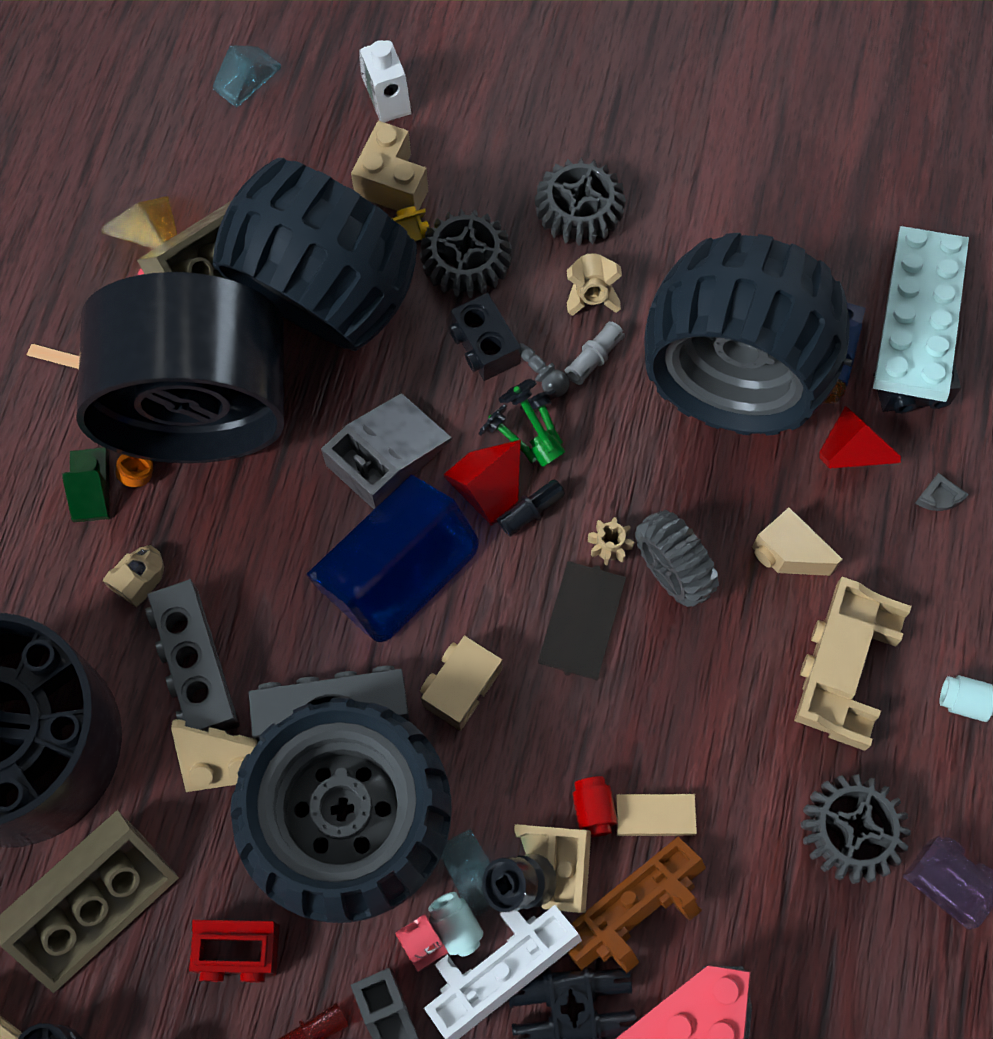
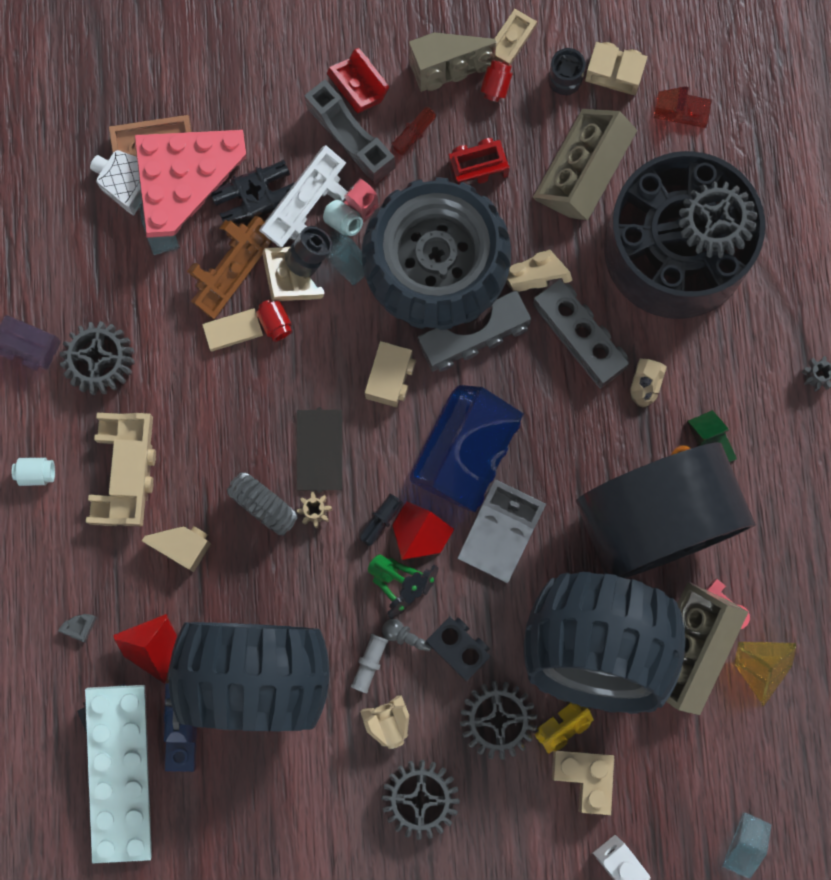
camera: 165 degrees right, 10 degrees up
(53, 356) = (775, 536): light nougat piece -> none

